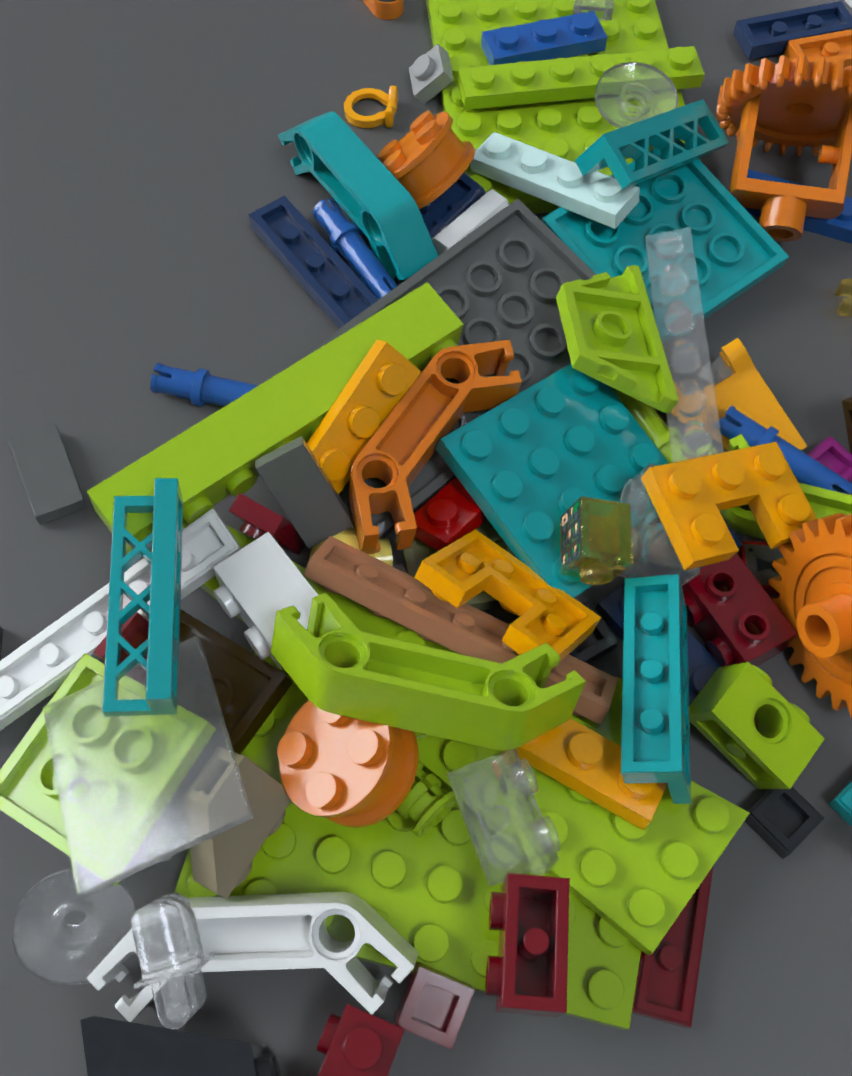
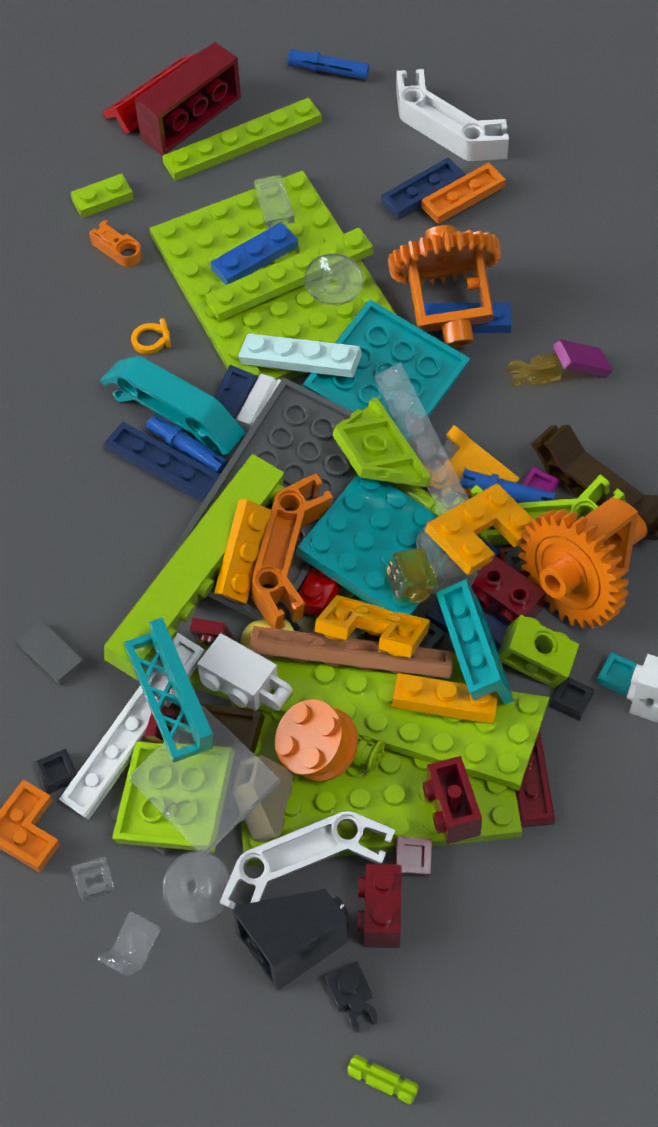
camera: 15 degrees left, 5 degrees down
(171, 958) = (263, 864): clear arm -> none
(197, 386) = (127, 566): blue pin -> none
(304, 492) = (229, 605): dark grey tile -> none
(421, 685) = (342, 683): lime piece -> none
(428, 157) = (212, 366): orange wheel -> none
(431, 74) = (184, 301): light grey plate -> none
(504, 816) = (413, 740): clear bracket -> none
(655, 132) = (360, 306): teal fence -> none

